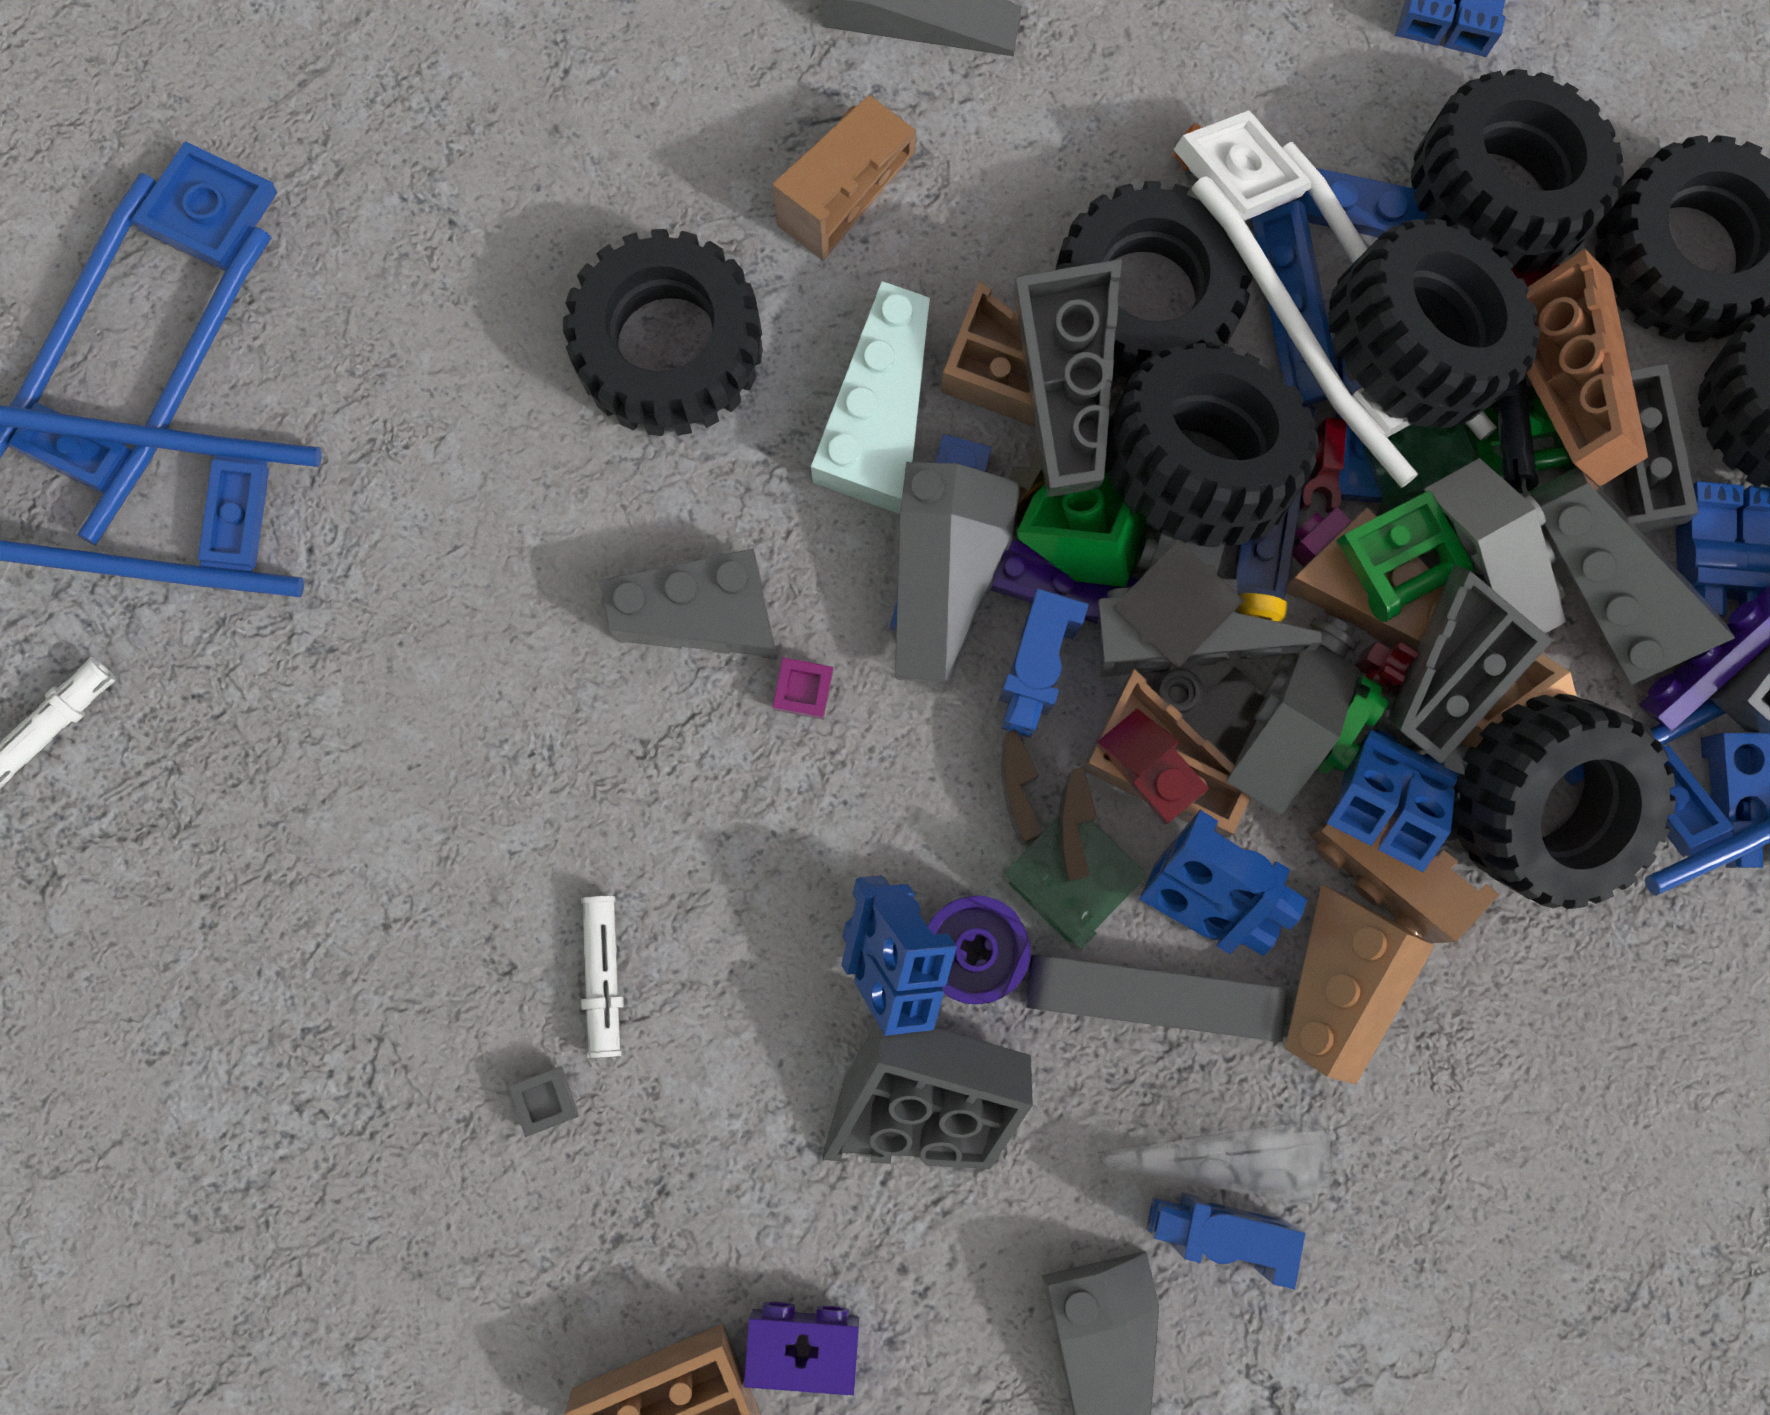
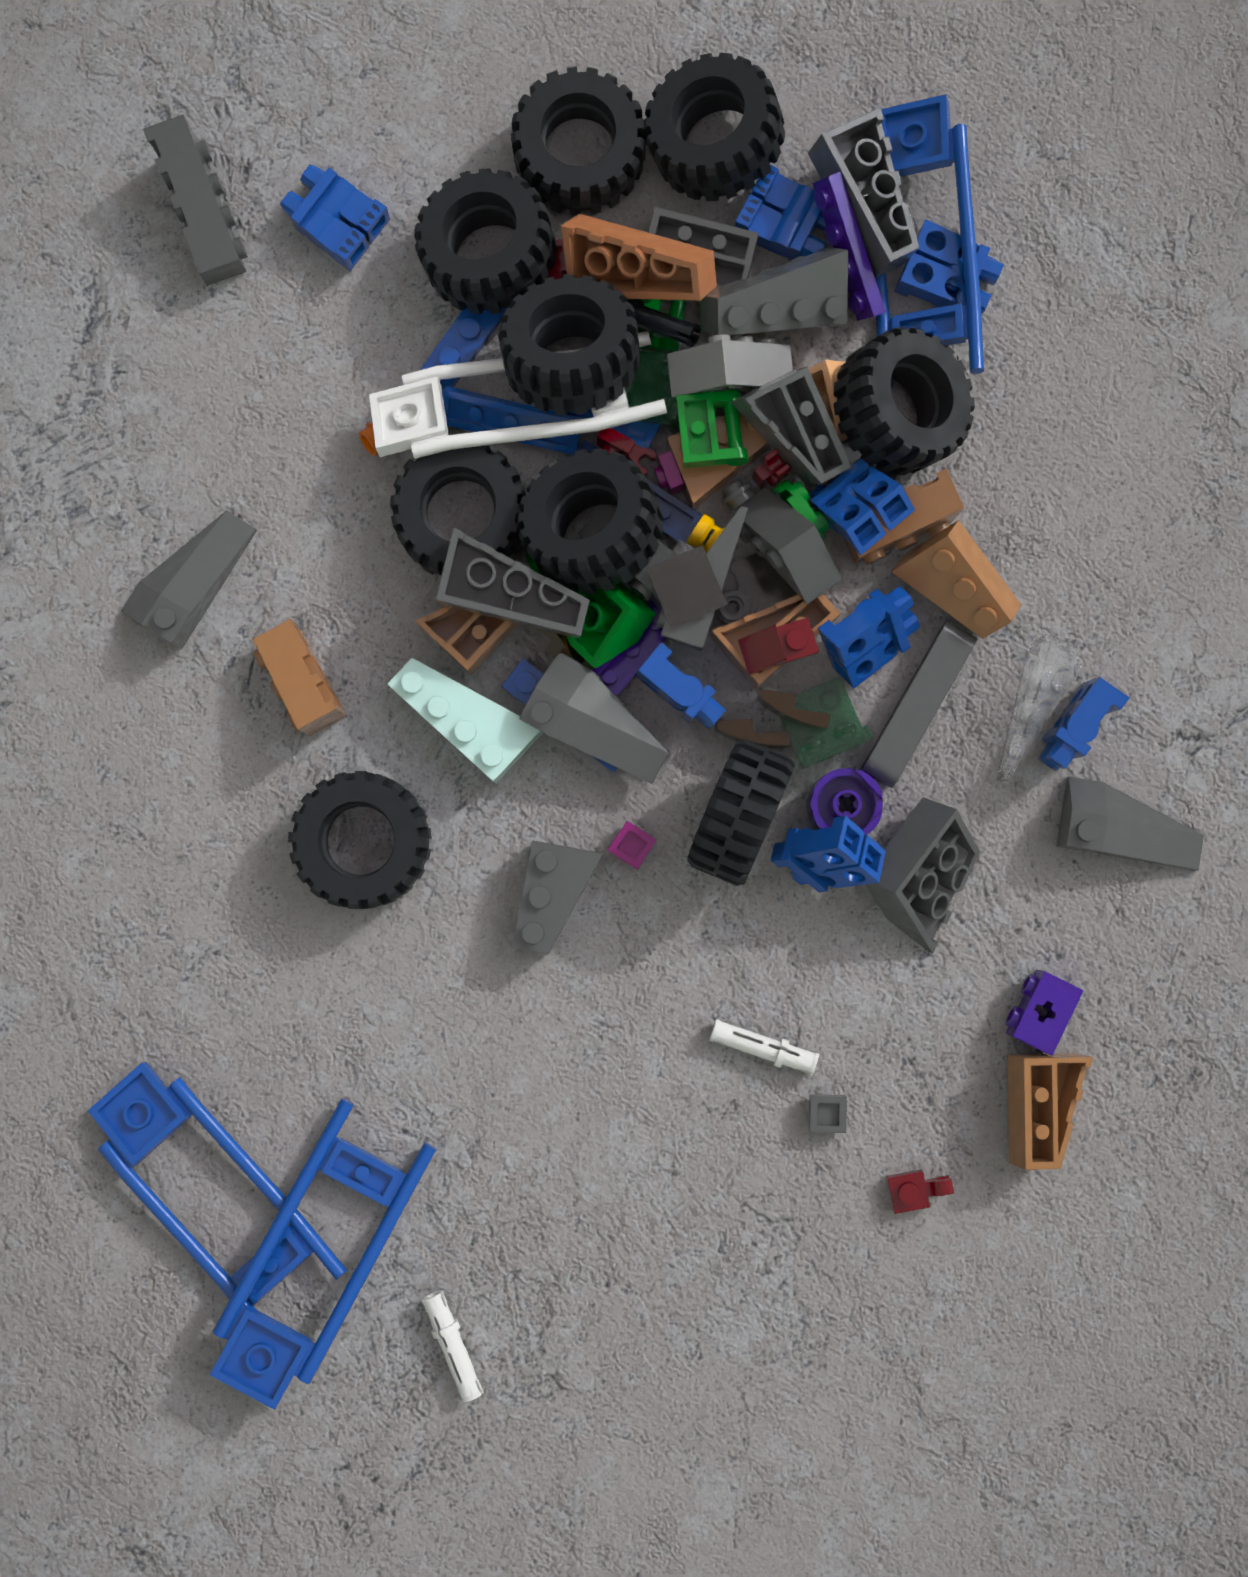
camera: 65 degrees left, 5 degrees up
(480, 1264) = (911, 1191): none -> dark red plate
(903, 803) = (740, 812): none -> black tyre

